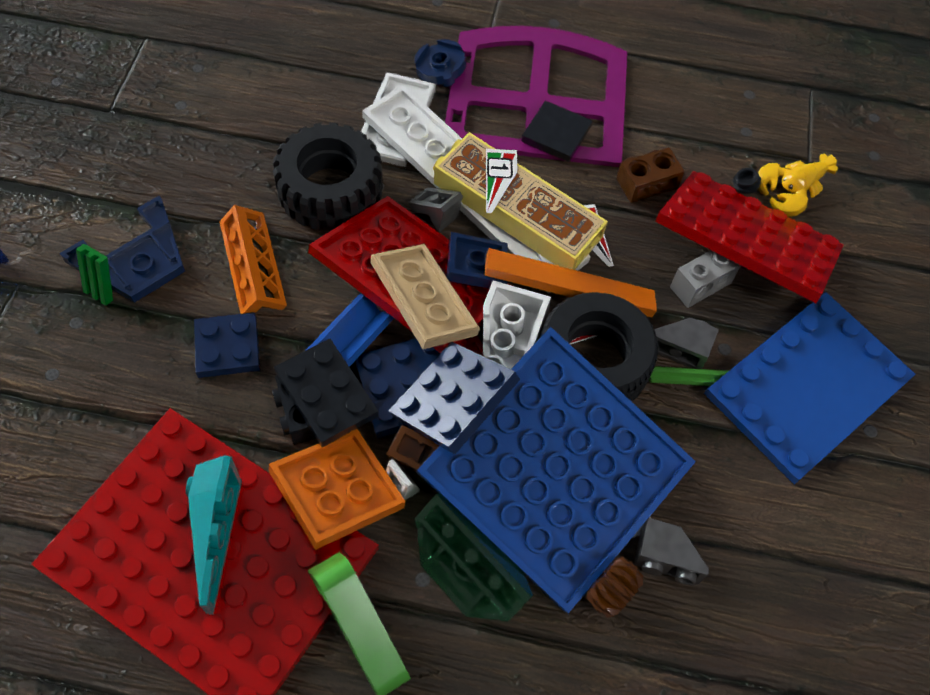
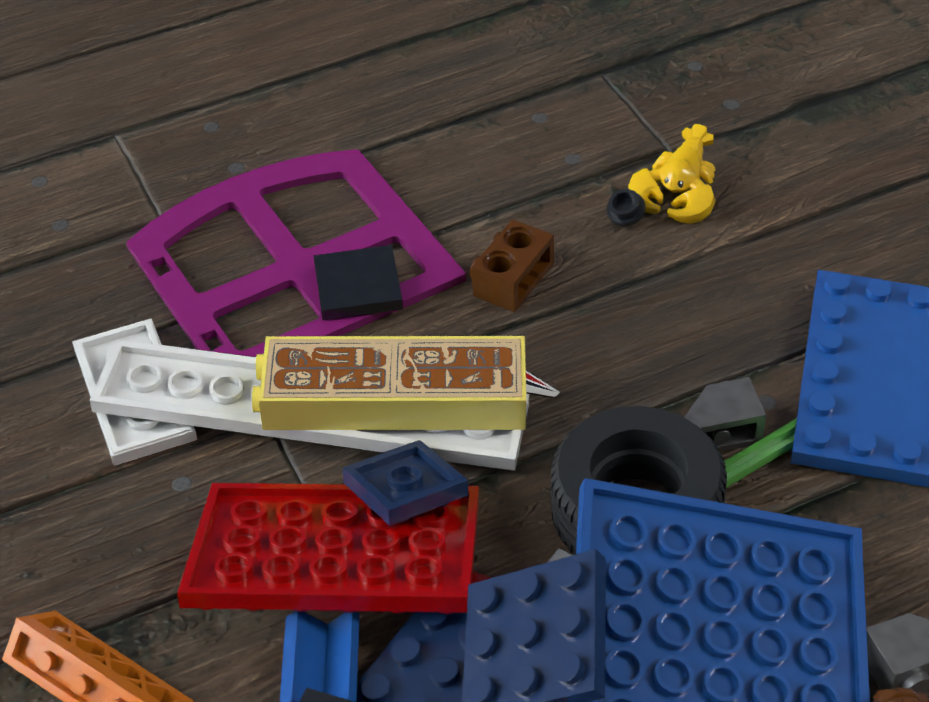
camera: 30 degrees left, 15 degrees down
(322, 149) = (125, 547): black tyre -> none
(424, 296) = (381, 558): tan tile -> none
(439, 204) = (288, 449): dark grey slope -> none
(444, 73) = (151, 300): dark blue plate -> none
(500, 171) = (350, 361): sticker -> none
(512, 322) = (514, 517): white wedge -> none
(563, 280) = (514, 441): orange tile -> none
(703, 277) = (677, 334): light grey brick -> none
(752, 235) = (689, 256): red plate -> none

